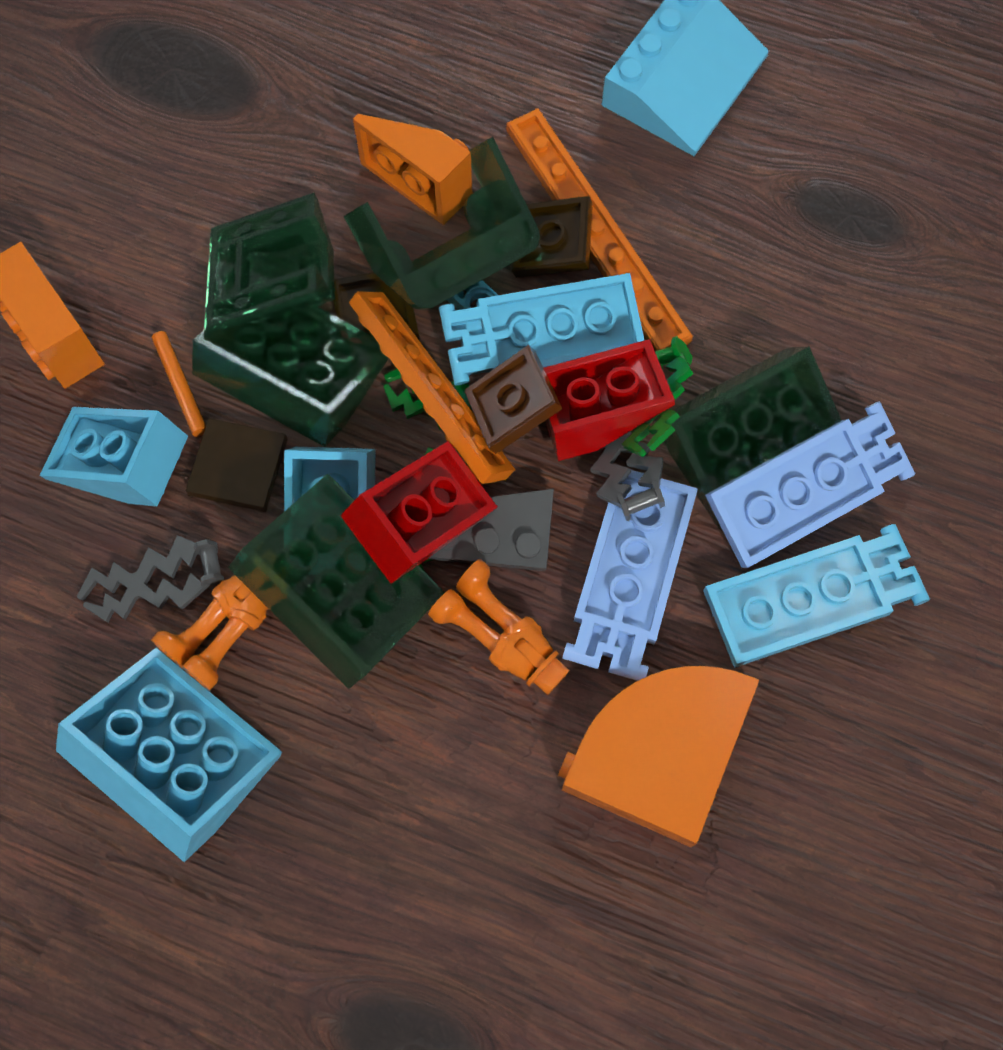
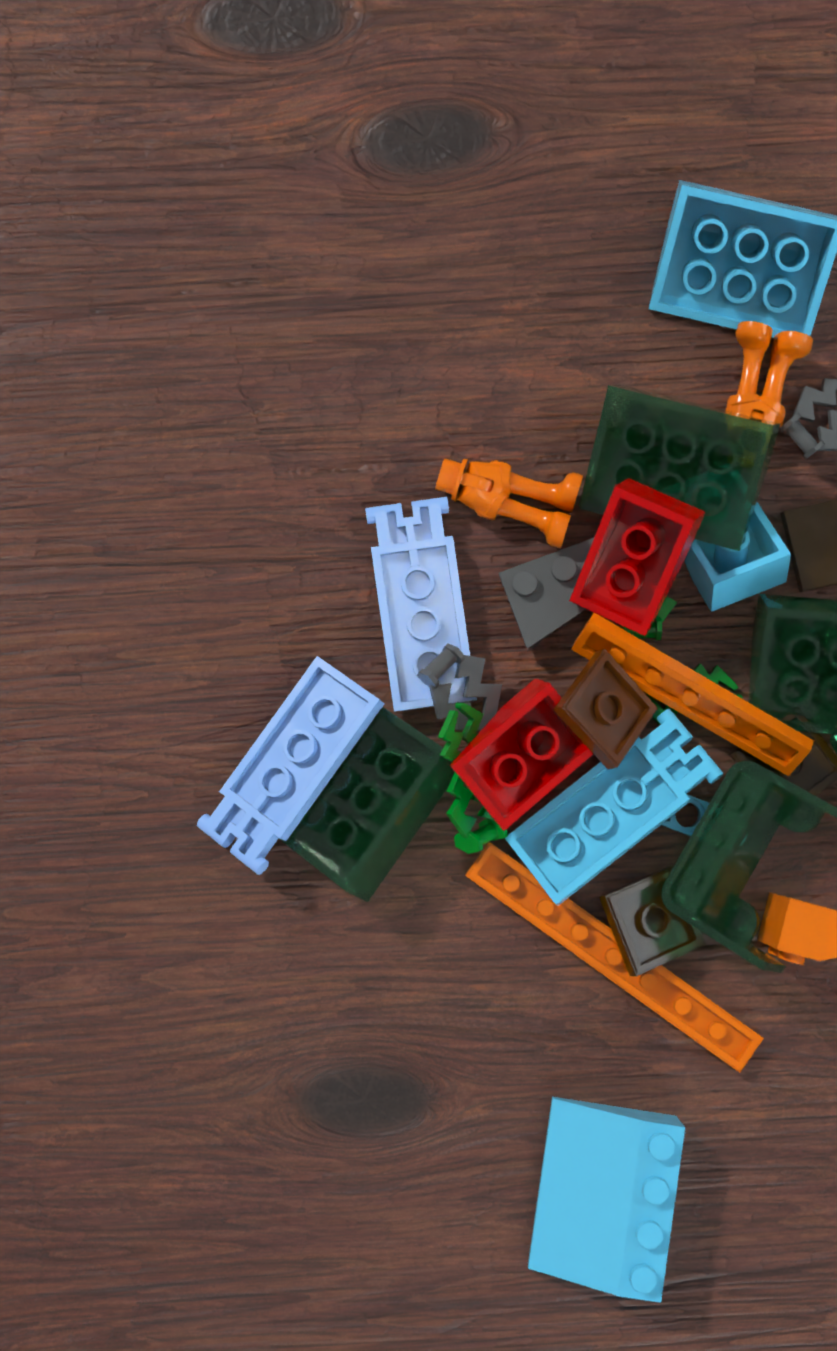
camera: 150 degrees right, 15 degrees up
(662, 748) = (324, 455): orange brick -> none
(813, 595) = (246, 659): medium azure hinge -> none

